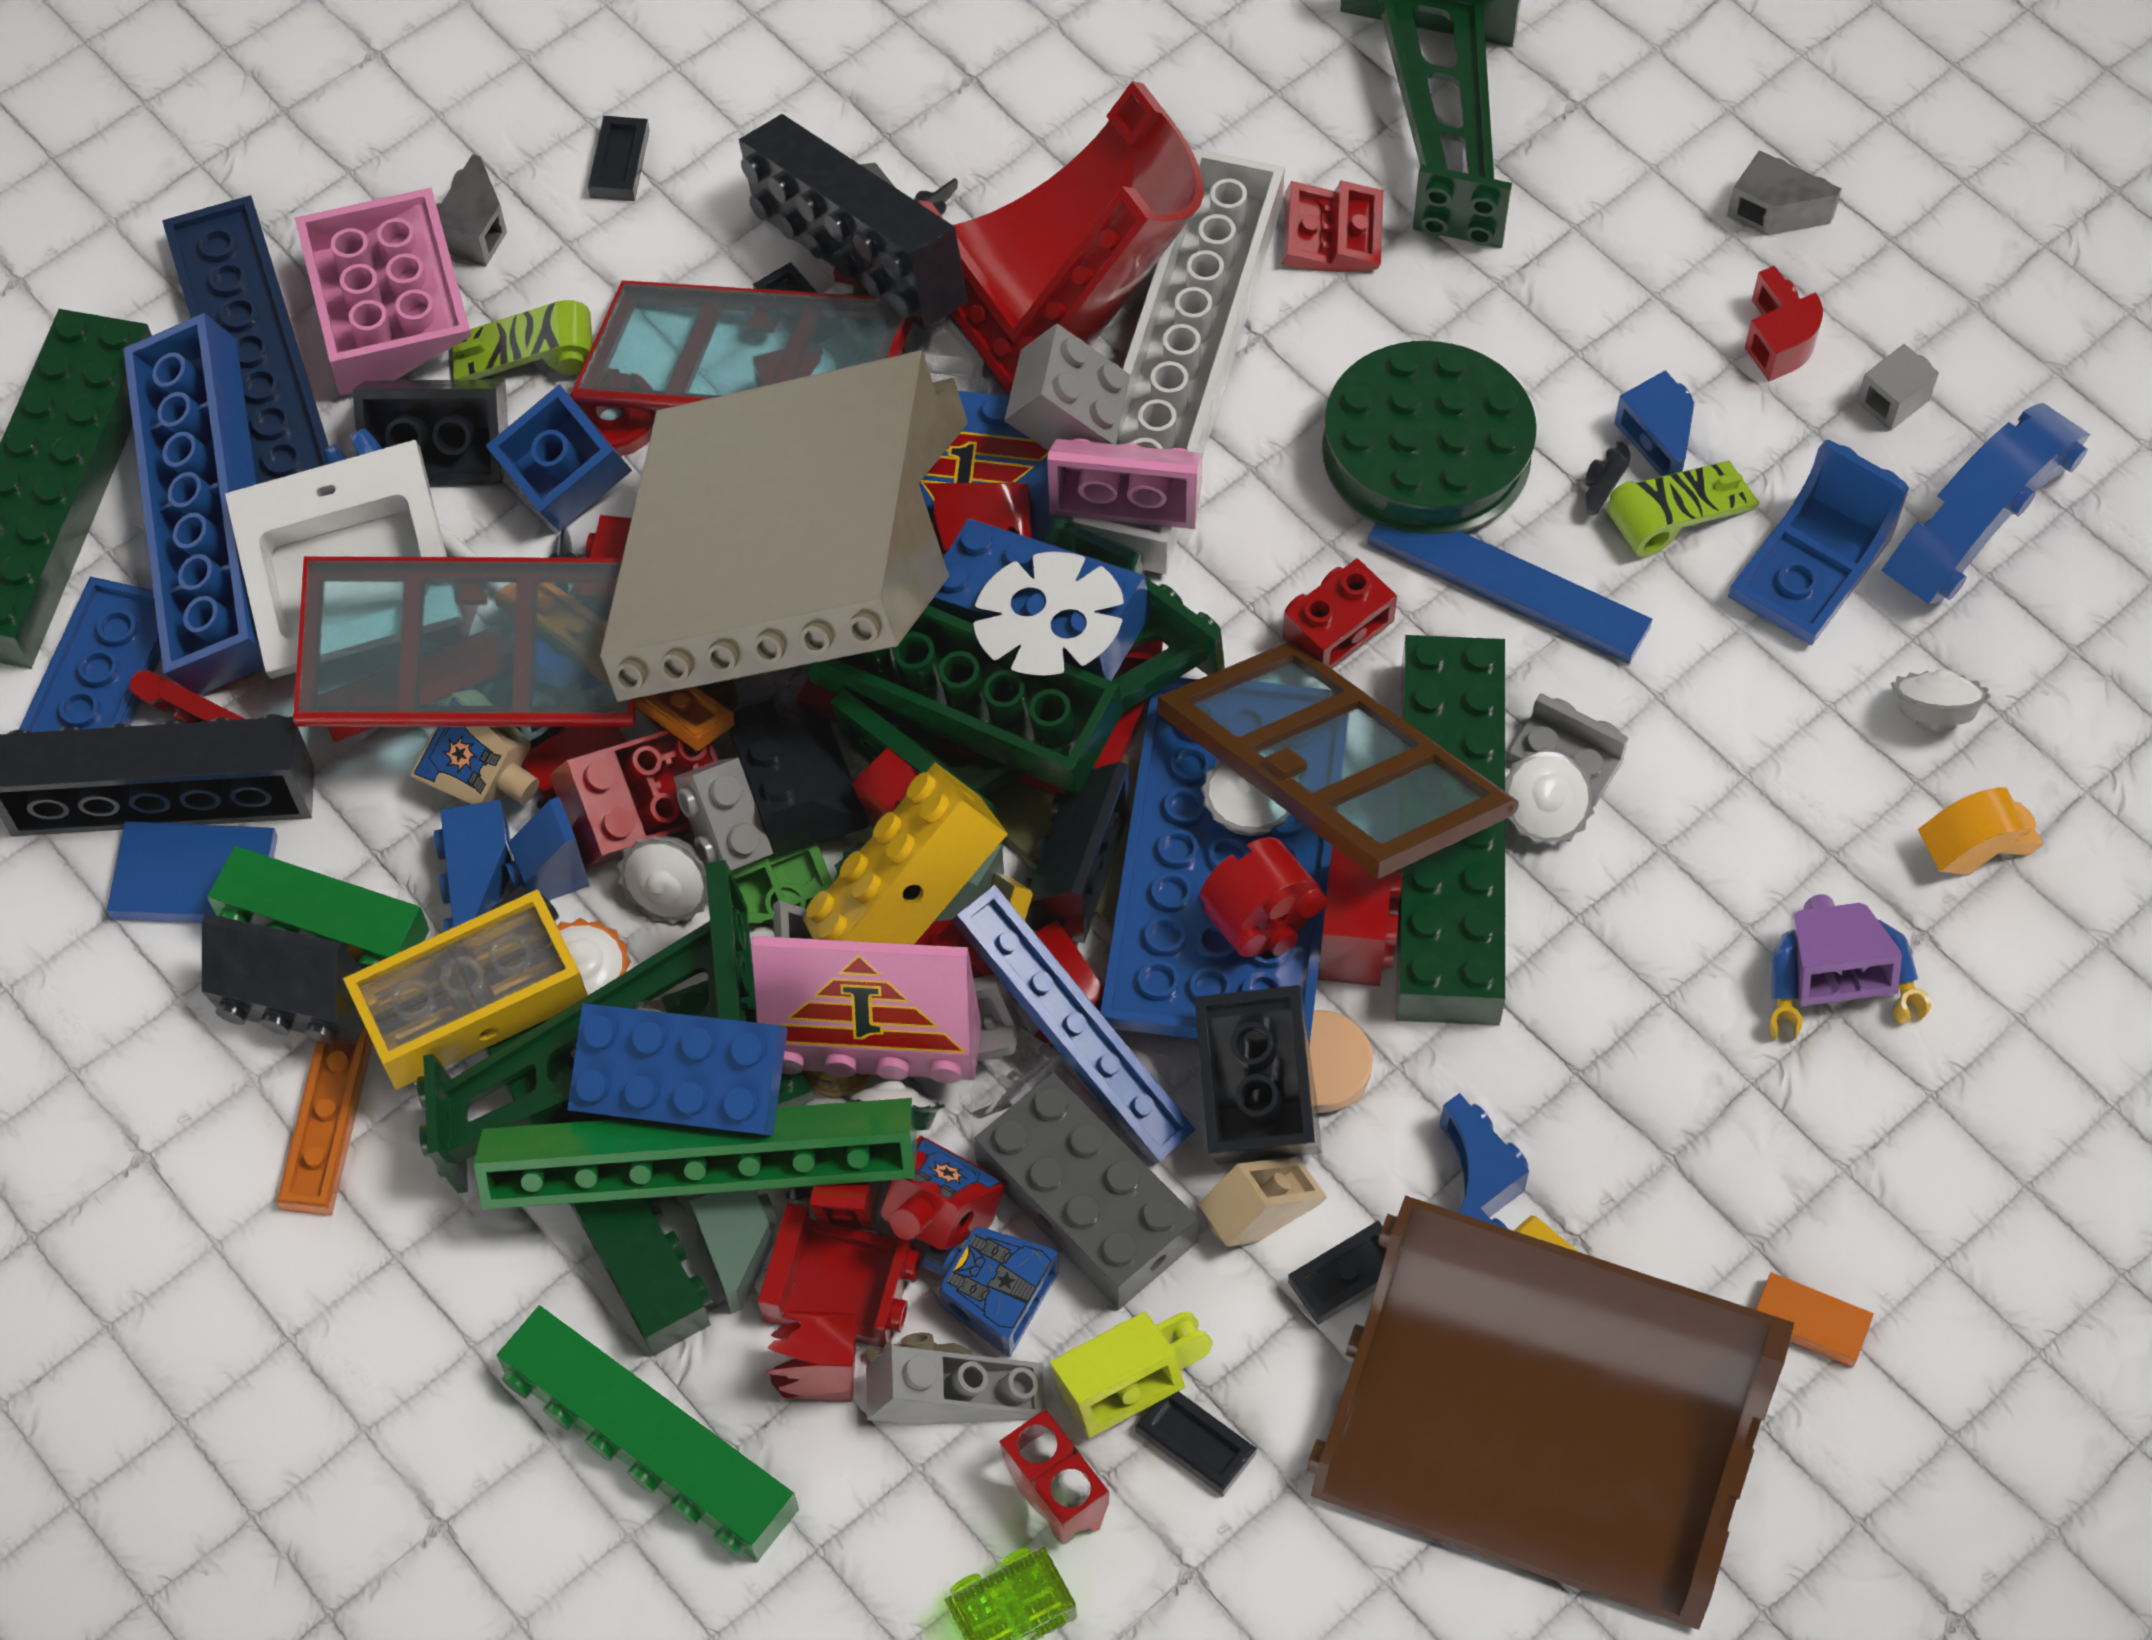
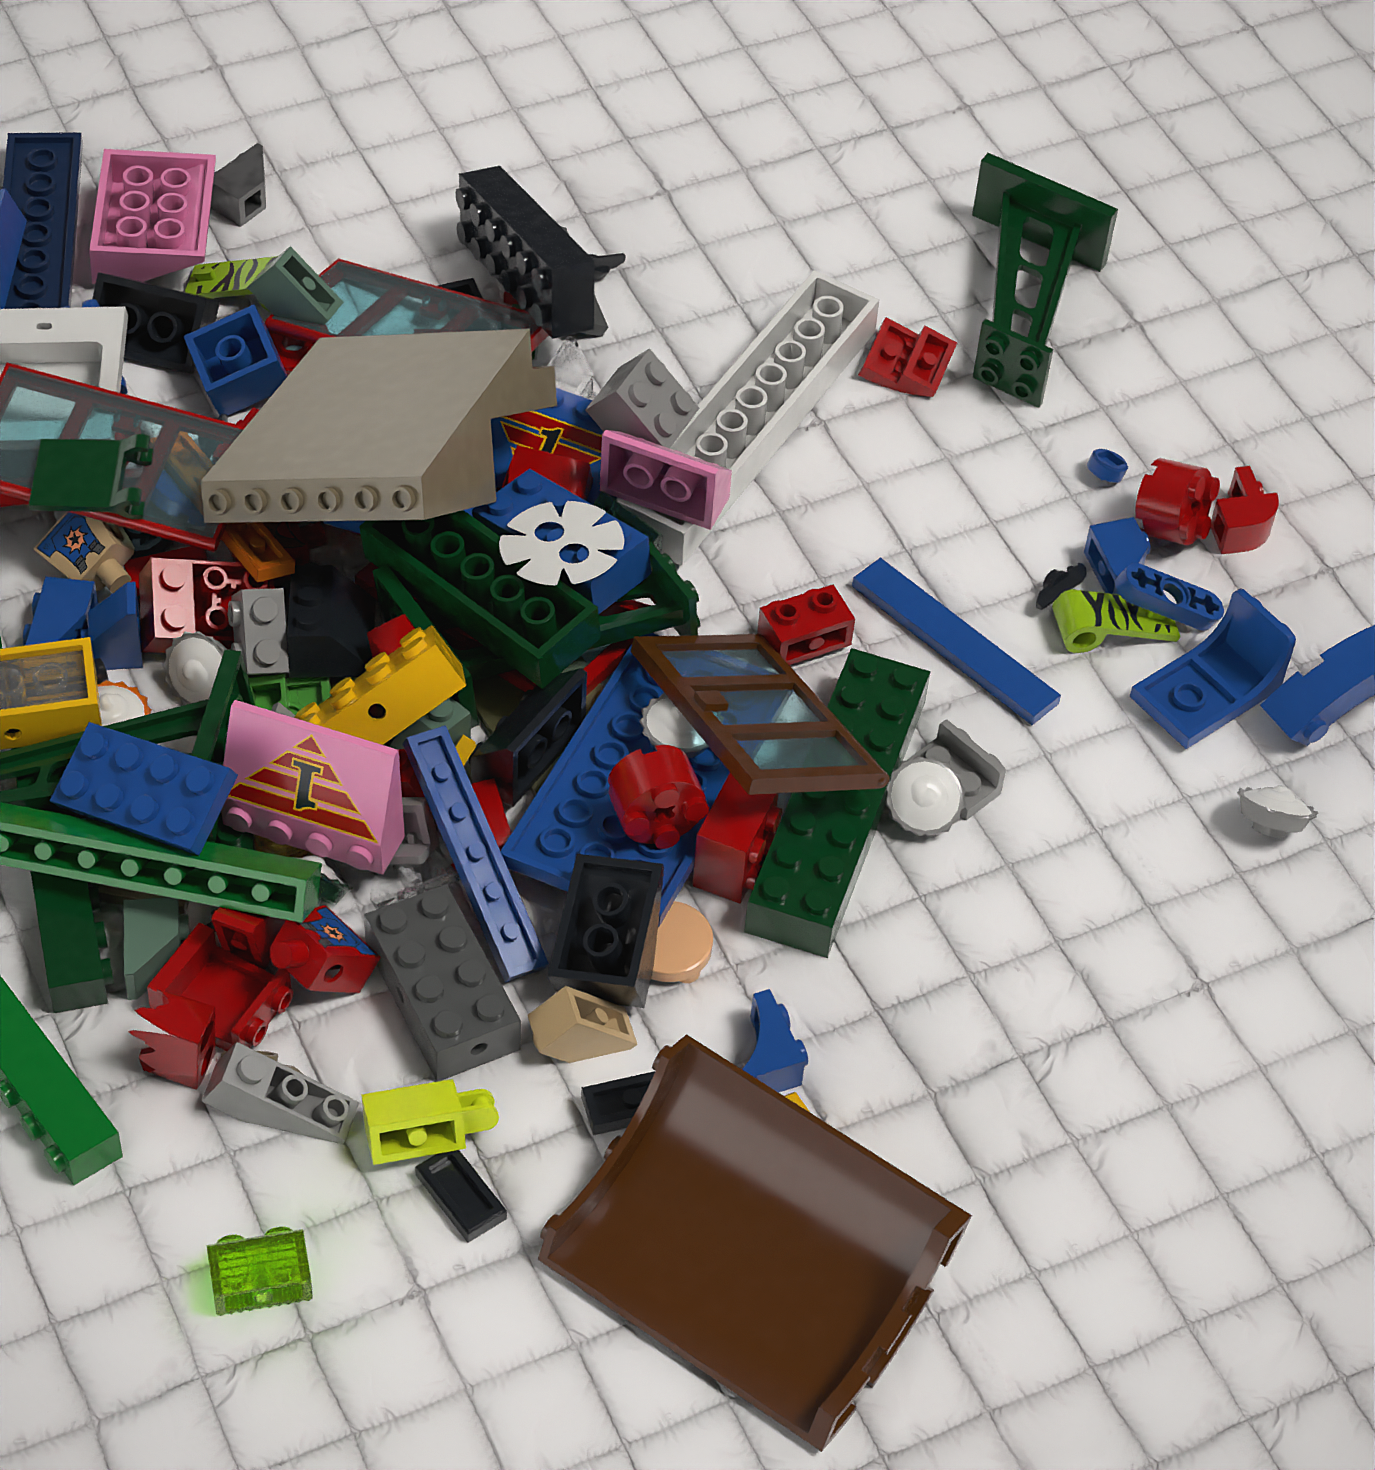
camera: 10 degrees right, 10 degrees down
(455, 678) = (89, 475): none -> dark green flag
(596, 347) = (295, 290): none -> sand green slope
(619, 158) = (370, 178): black tile -> none
(994, 1284) = (343, 1030): torso -> none
(1062, 1520) = (312, 1152): red piece -> none
(1080, 237) = (701, 315): red panel -> none
(1428, 437) = (926, 519): dark green wheel -> none
(1607, 305) = (1107, 465): none -> blue tile
(1708, 337) = (1176, 501): none -> red brick
(1722, 470) = (1145, 588): none -> blue beam
(1781, 197) = (1276, 424): flat silver slope -> none
(1819, 1319) = (1006, 1244): orange tile -> none
(1841, 957) = (1122, 975): medium lavender torso -> none
(1897, 386) = (1322, 580): light grey brick -> none
(1978, 829) = (1274, 910): light orange brick -> none

